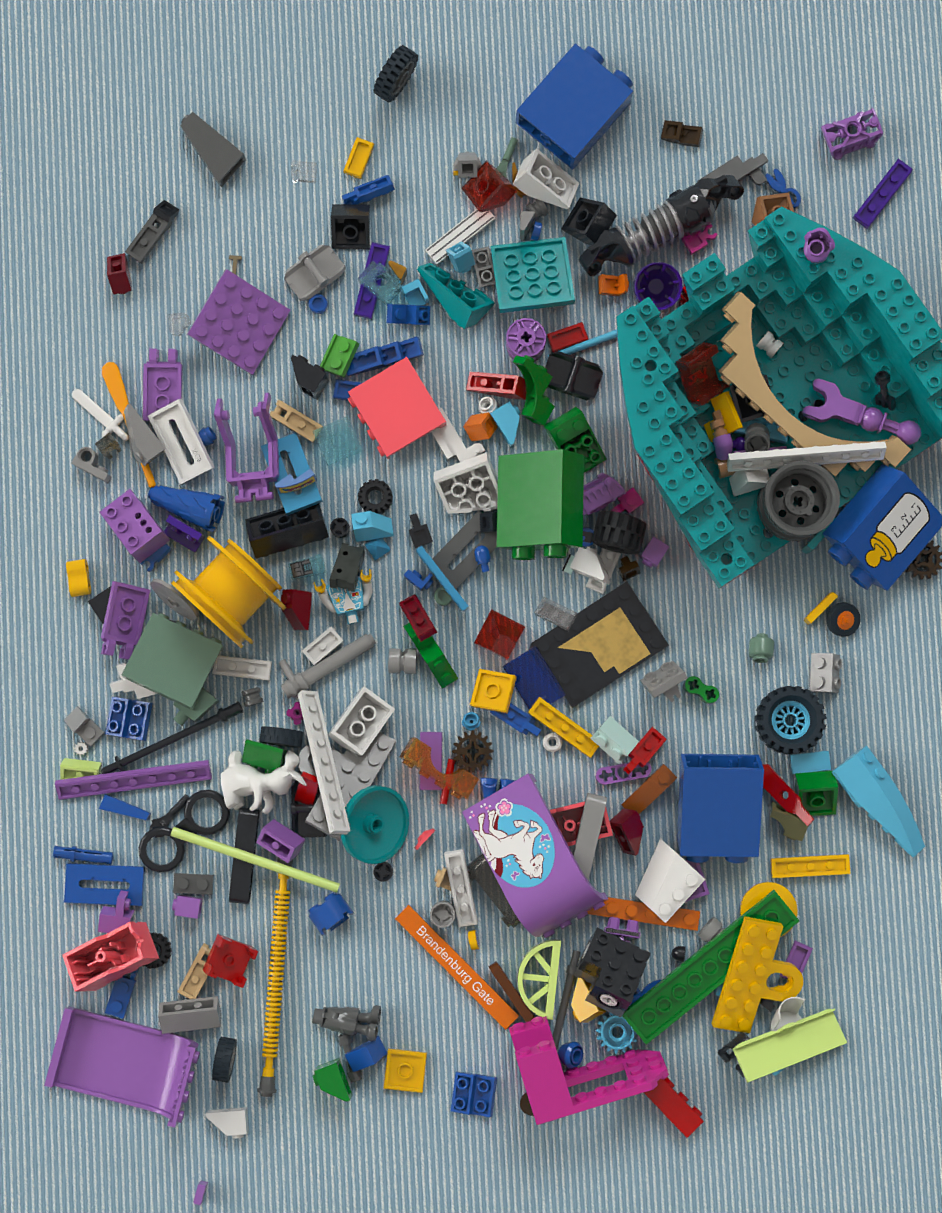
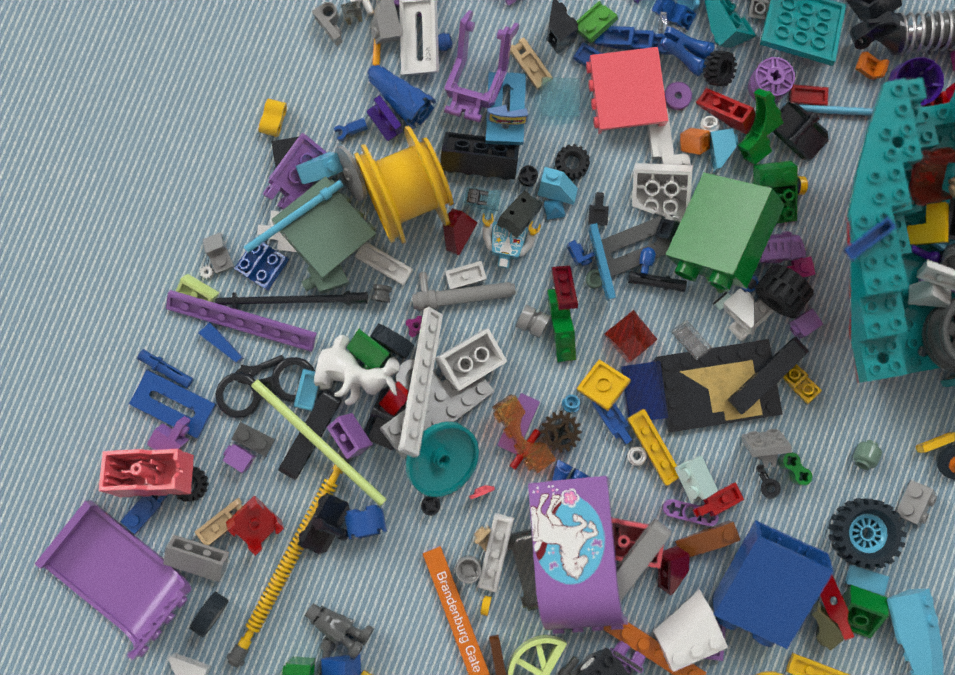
camera: 15 degrees right, 0 degrees up
(134, 526) = (343, 92): medium lavender piece -> none
(143, 606) = (319, 167): none -> medium azure slope
(160, 630) = (325, 194): none -> medium azure bar
(223, 817) = (306, 391): none -> medium azure tile
(294, 932) = (325, 524): none -> black shield
(411, 332) = (662, 24): none -> clear tile
(447, 338) = (679, 44): none -> blue piece
(452, 396) = (685, 92): none -> medium lavender piece
(465, 350) = (720, 75): none -> black tyre
(501, 573) = (657, 281): none -> black pin
(595, 425) = (802, 185): none -> yellow tile
(628, 568) = (776, 328): dark brown tile -> none
(639, 616) = (768, 375): none -> black beam
(660, 464) = (869, 238): none -> blue piece
(674, 609) = (801, 384): none -> yellow slope
(681, 714) = (766, 482): none -> black plate
(722, 444) = (921, 250): piece -> none

